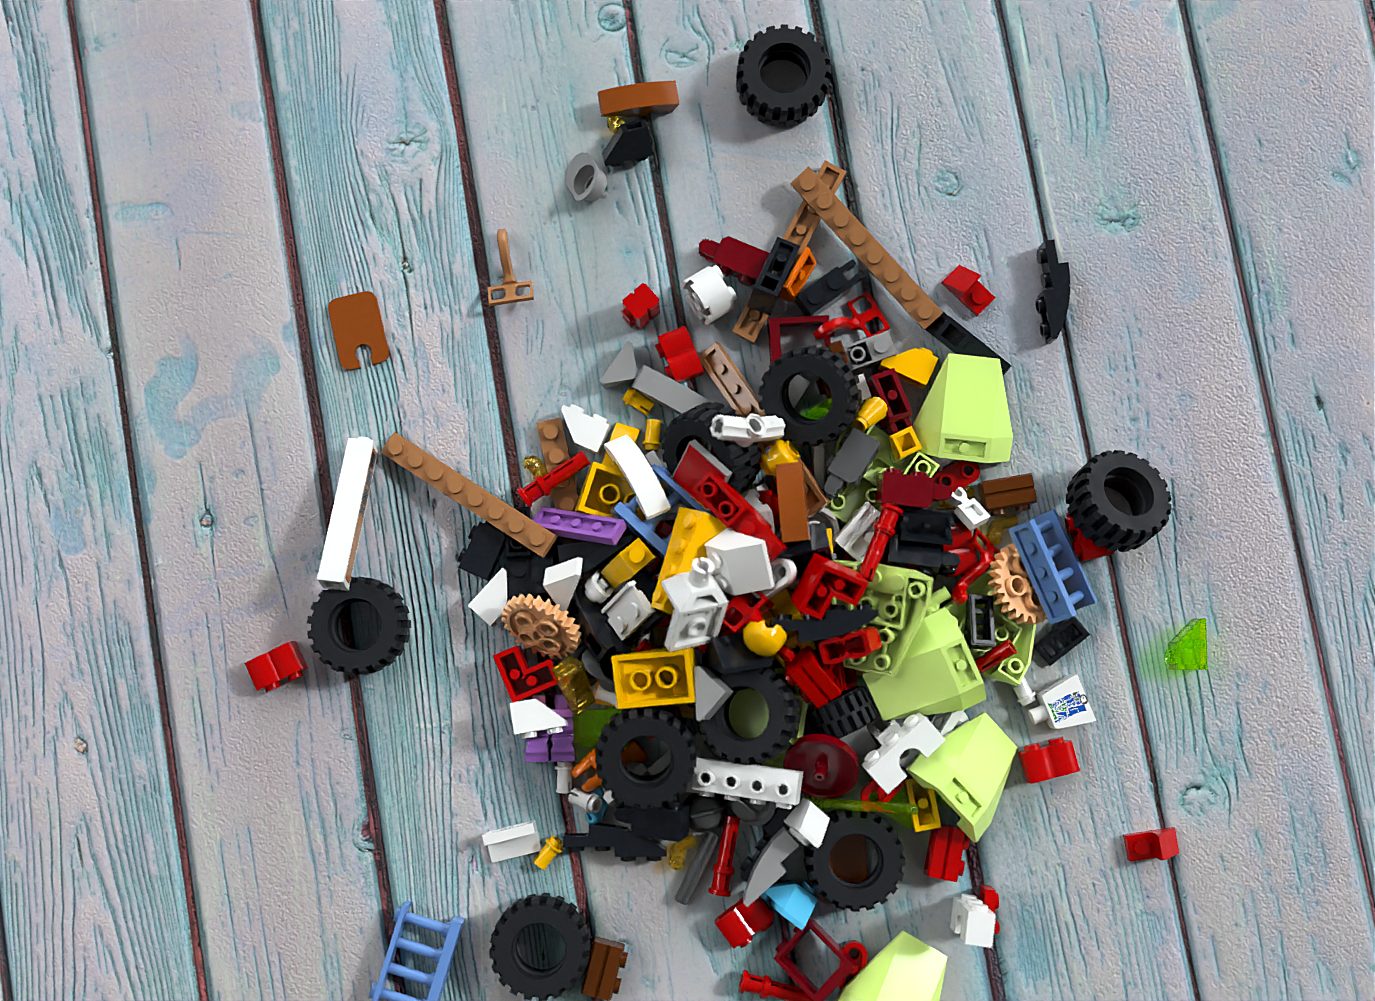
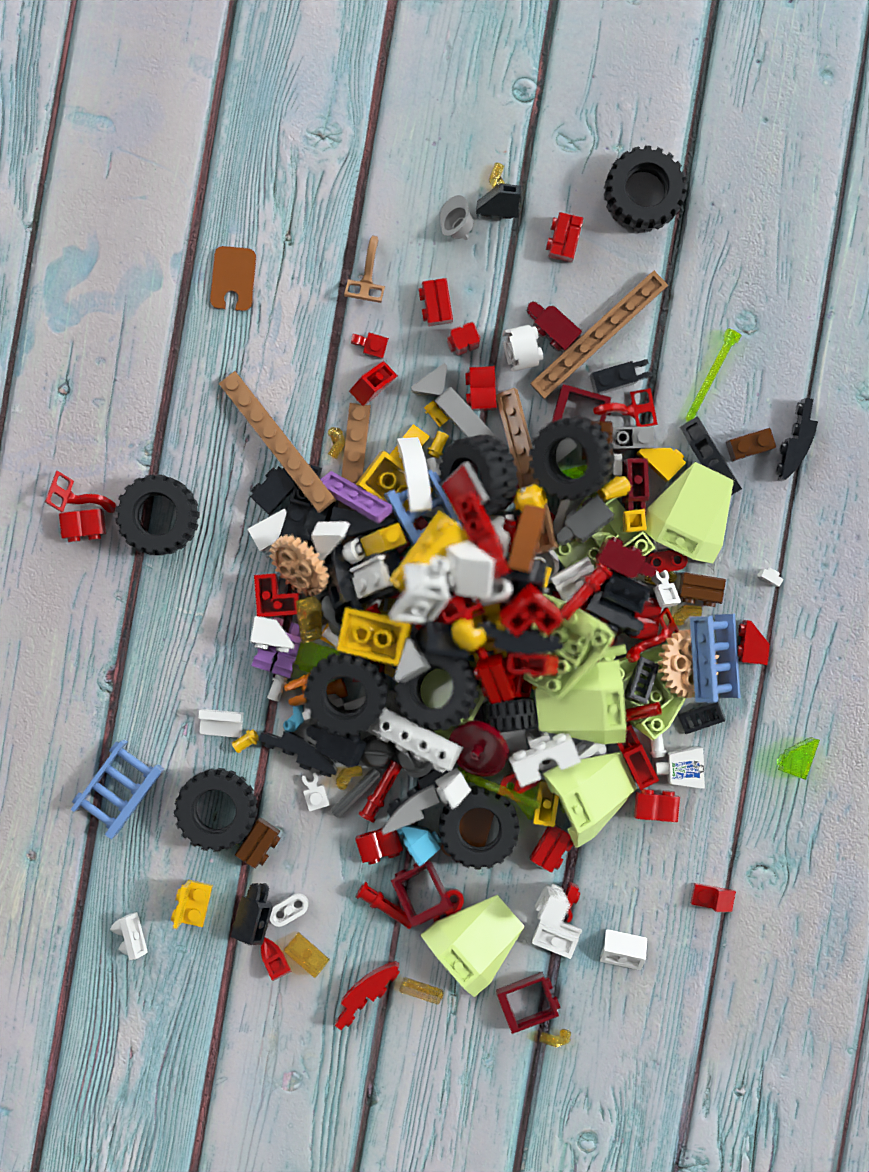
camera: 15 degrees right, 5 degrees up
(251, 640) = (69, 497): none -> red piece
(348, 514) = (178, 424): white brick -> none
(541, 349) = (373, 345): none -> red plate
(543, 485) = (339, 454): red pin -> none
(555, 392) = (373, 383): none -> red slope
(586, 430) = (386, 423): white slope -> none
(590, 802) = (291, 714): white pin -> none
(596, 278) = (437, 302): none -> red brick
(639, 99) = (522, 167): dark orange slope -> none
(651, 887) = (316, 795): none -> white plate
(713, 158) = (565, 237): none -> red brick
(747, 430) = (511, 469): white piece -> none
(773, 276) = (578, 350): black slope -> none
(798, 276) = (599, 357): orange slope -> none
(866, 248) = (660, 353): medium nougat plate -> none
(936, 206) = (730, 338): none -> clear neon green piece
(968, 290) = (731, 415): red slope -> none
(993, 961) = (558, 940): none -> white plate
(1002, 314) = (750, 444): none -> reddish brown brick
(1007, 715) = (637, 759): none -> red slope
(1072, 943) = (624, 950): none -> white panel
(1079, 453) = (770, 576): none -> white plate
(1139, 486) = (805, 615): black tyre -> none

